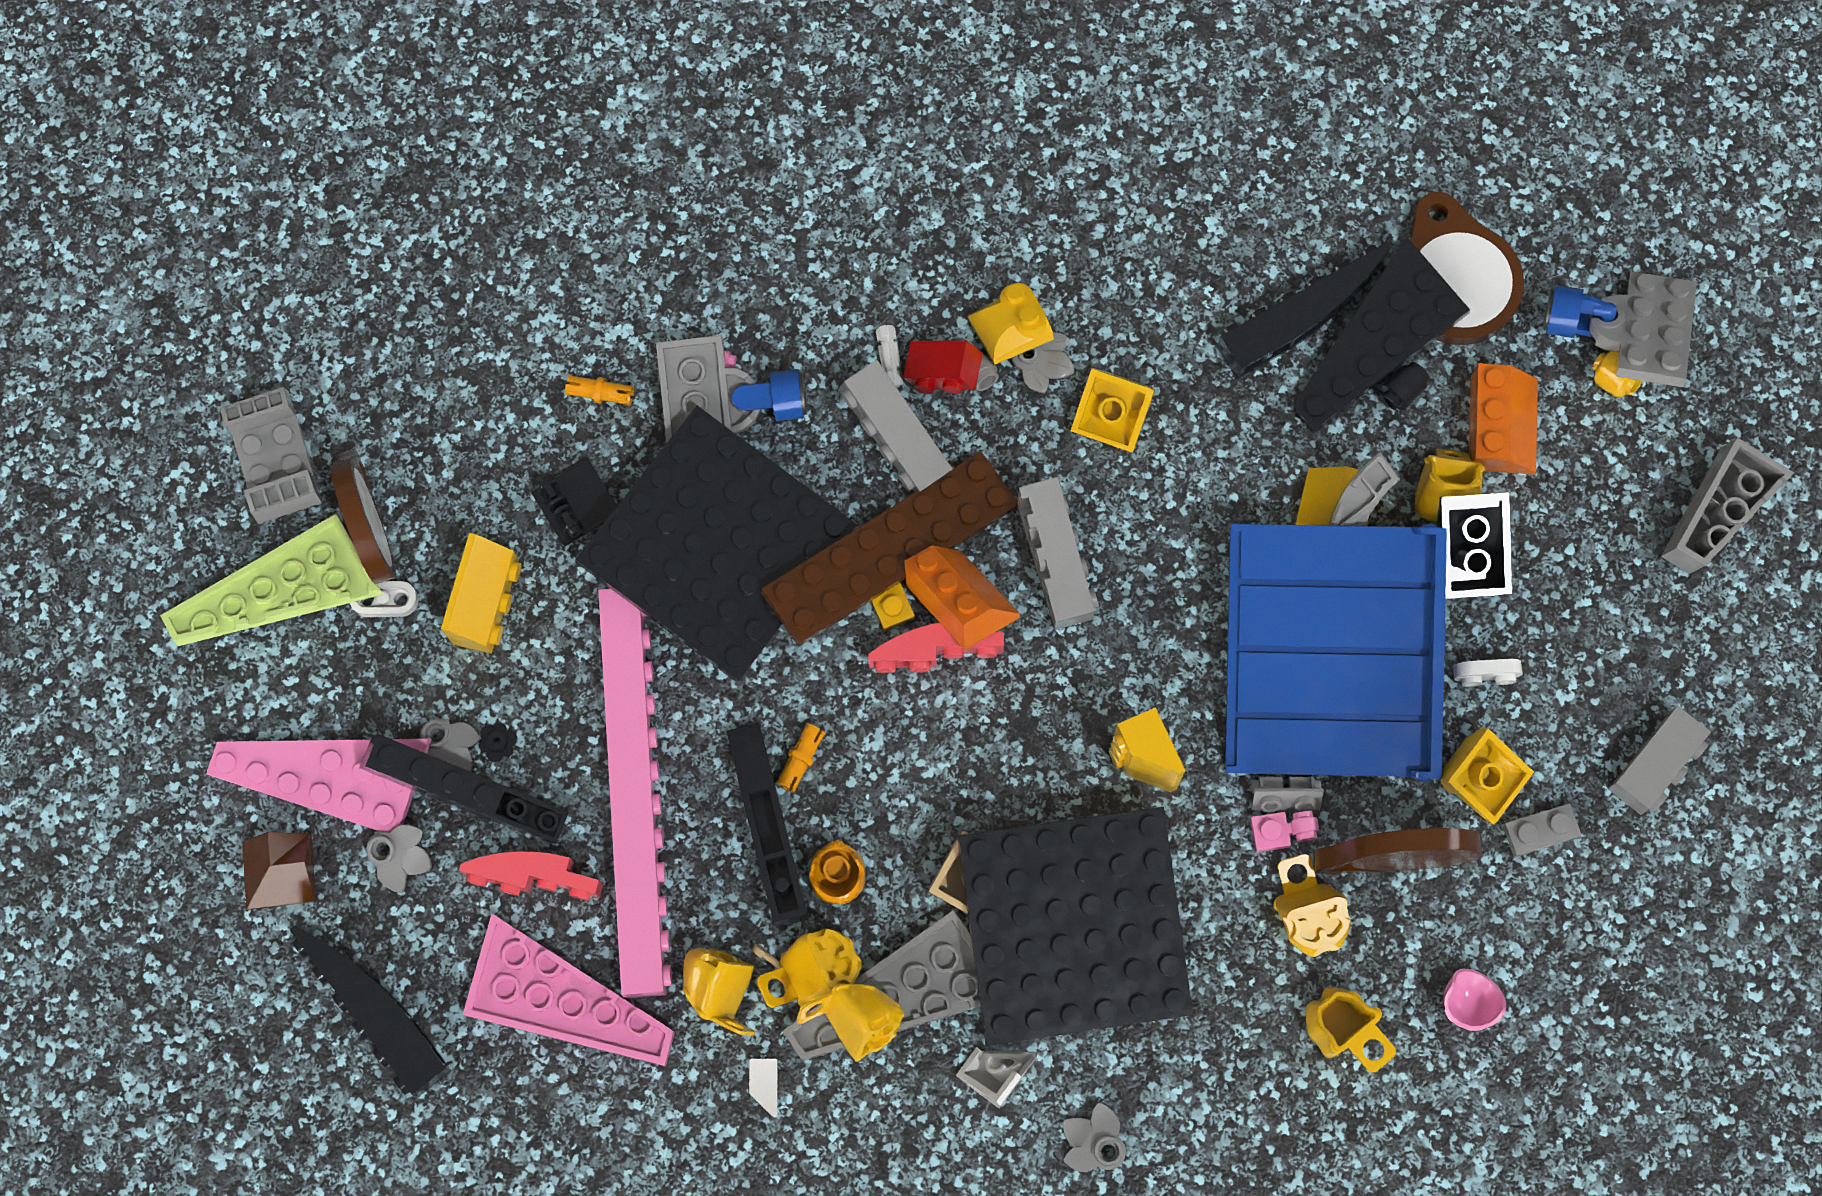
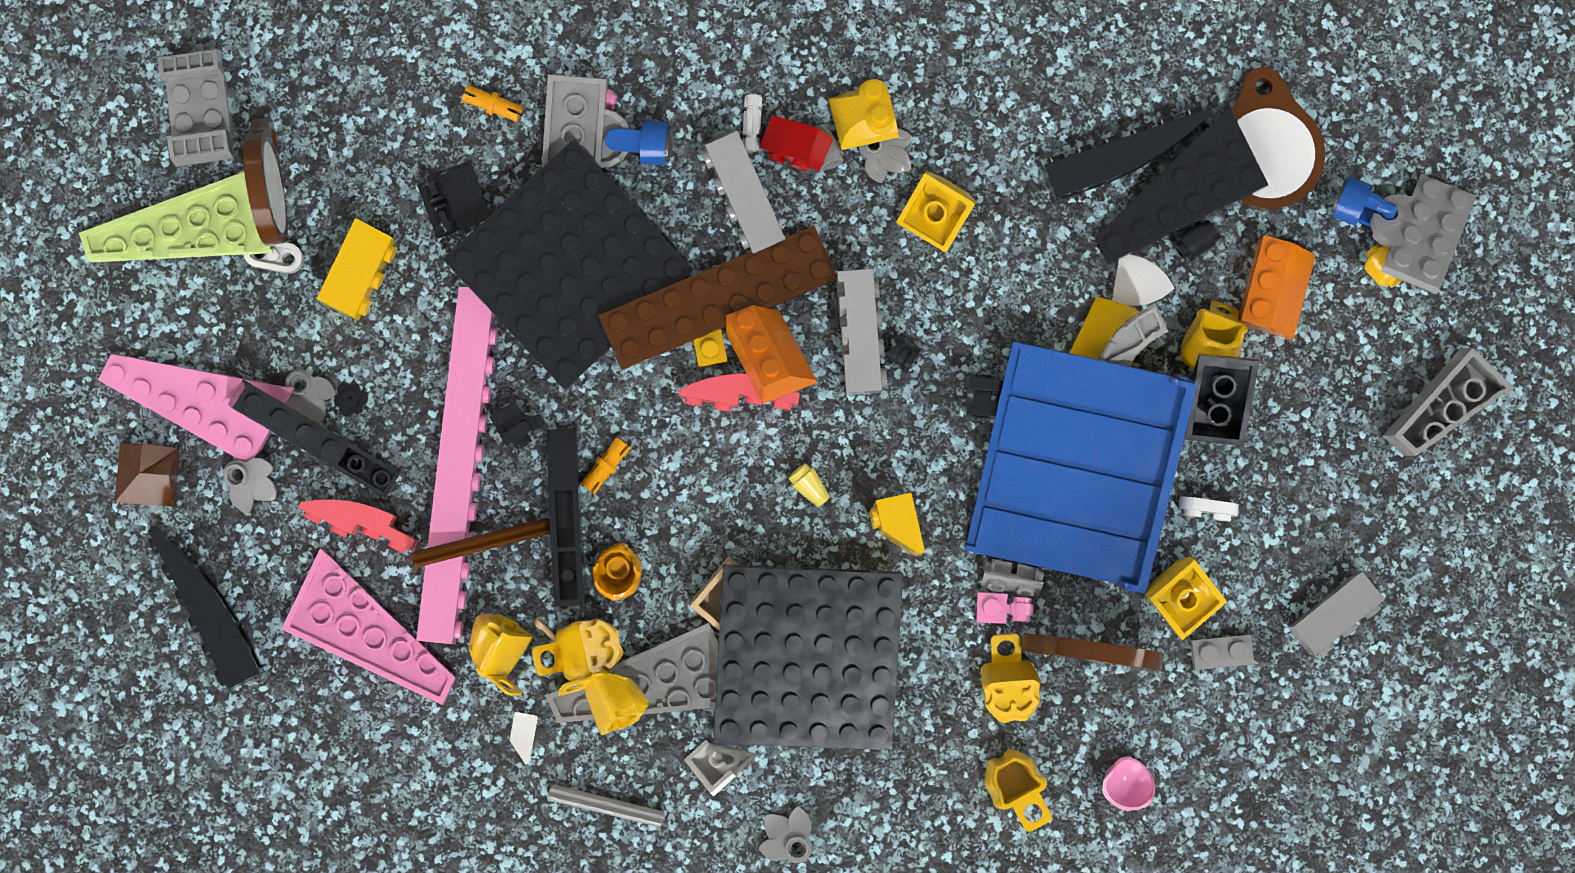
camera: 10 degrees right, 10 degrees up
(675, 868) = (480, 543): none -> reddish brown axle
(691, 732) = (516, 427): none -> black brick
(876, 1146) = (606, 805): none -> light grey axle
(1035, 734) = (808, 484): none -> light yellow cone
(1110, 570) = (904, 354): none -> black wheel
(1208, 598) = (982, 396): none -> black brick
(1352, 443) = (1139, 282): none -> white sticker

